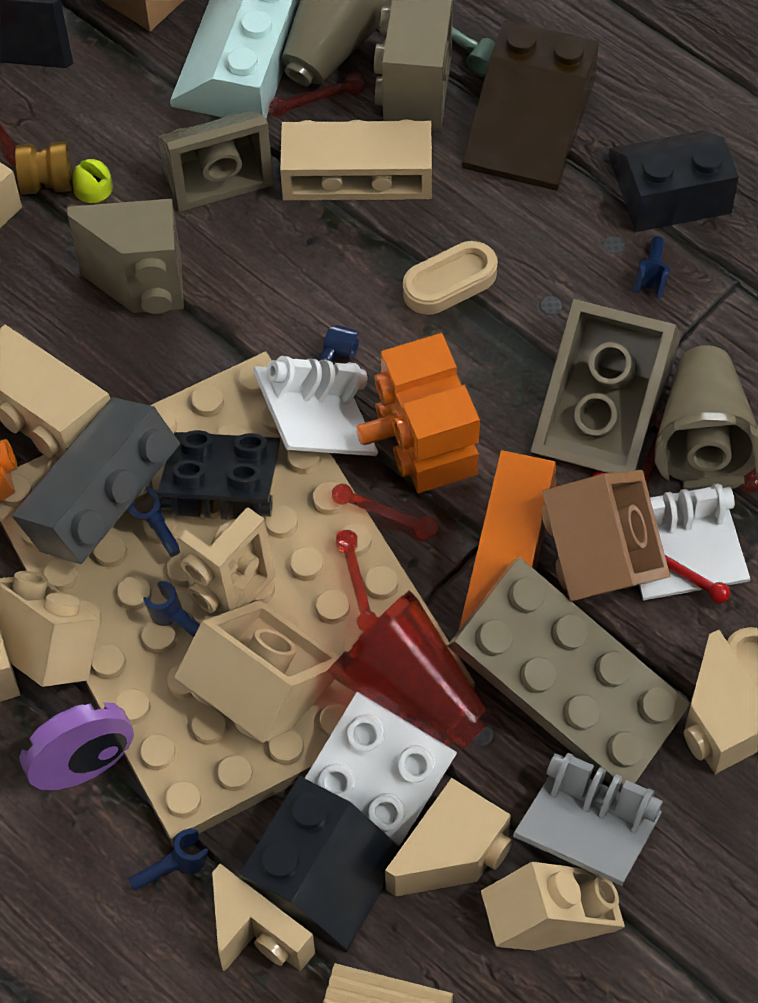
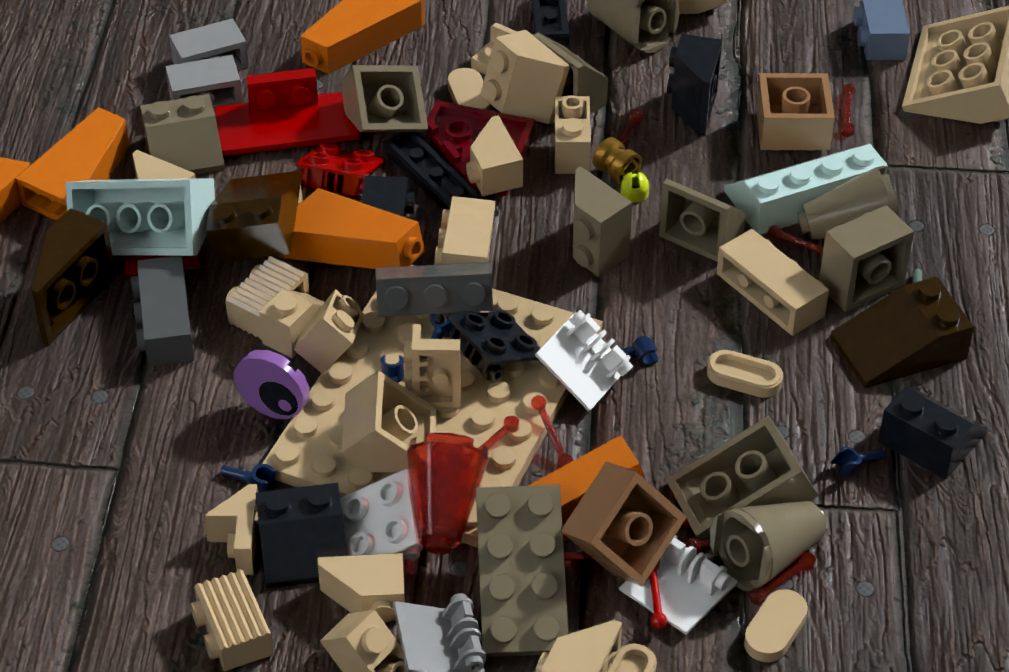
camera: 50 degrees right, 15 degrees down
(425, 414) = (627, 399): orange brick -> none

